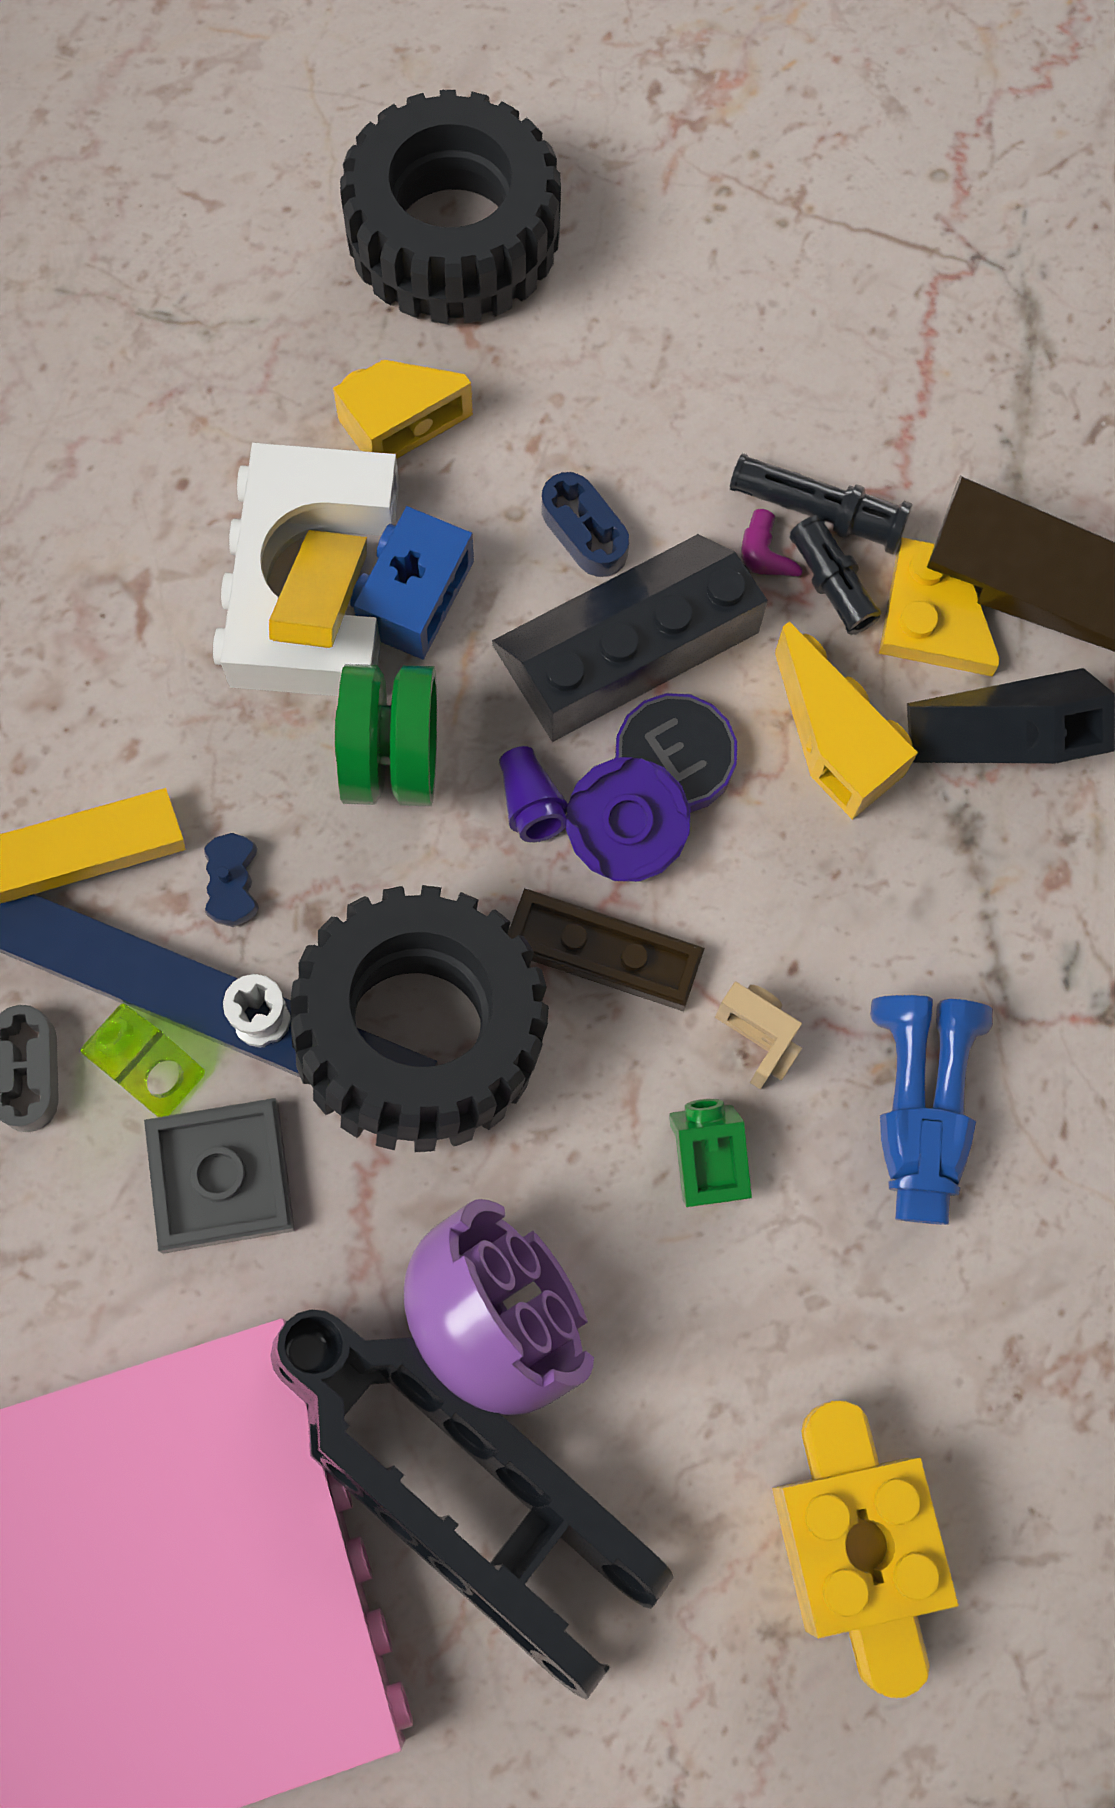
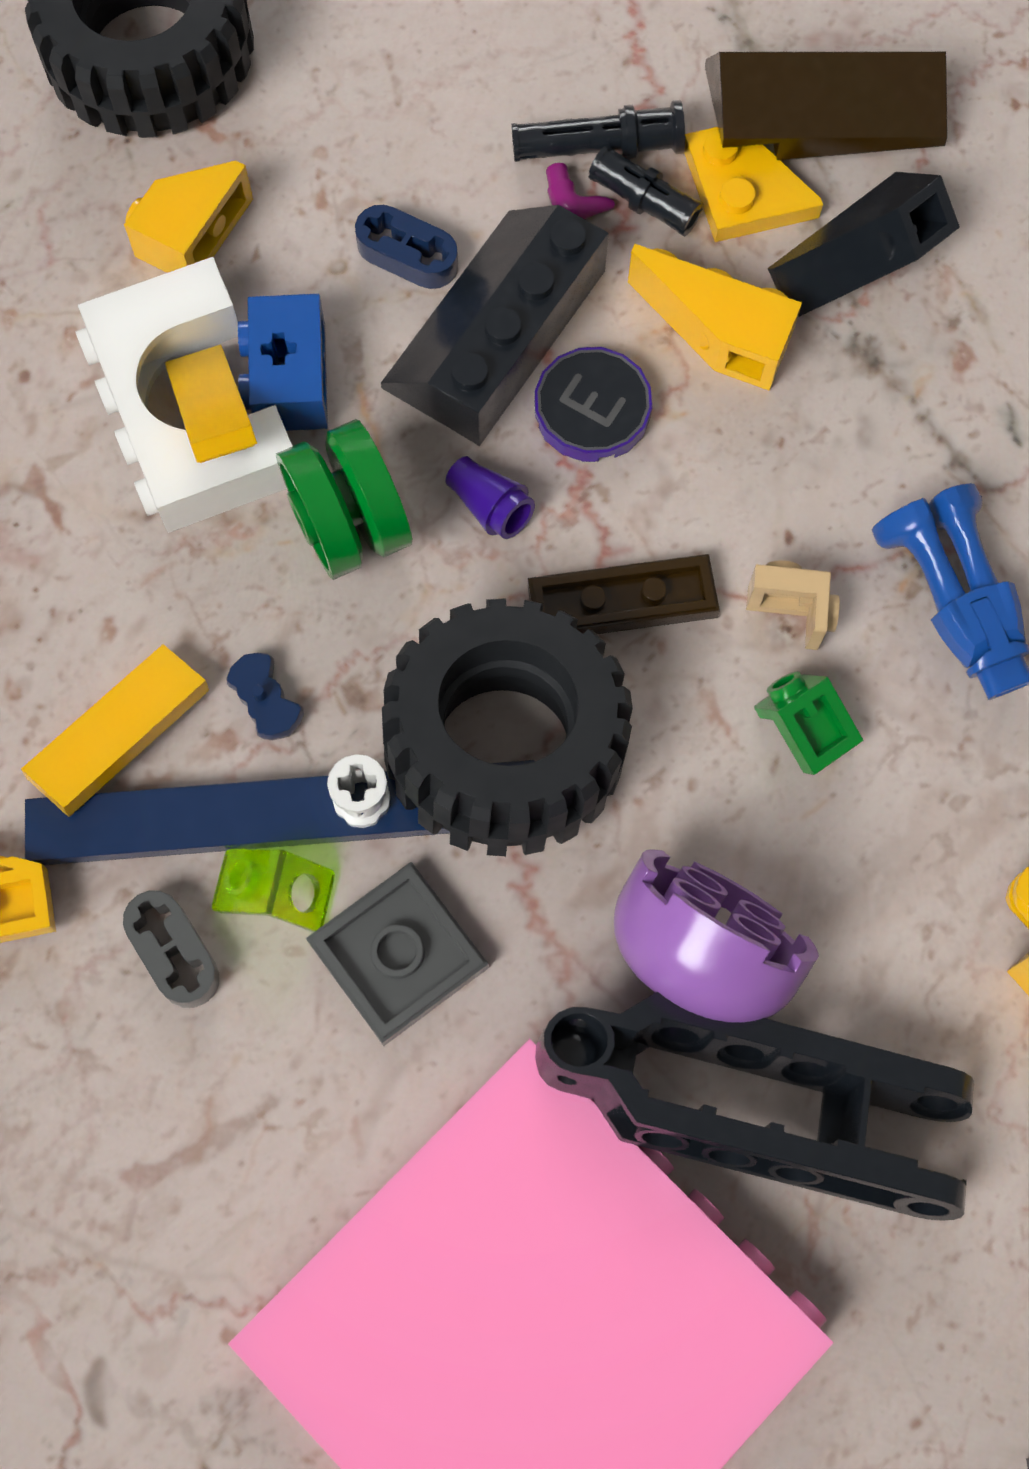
camera: 25 degrees left, 0 degrees up
(628, 819) = (585, 477): dark purple tile -> none

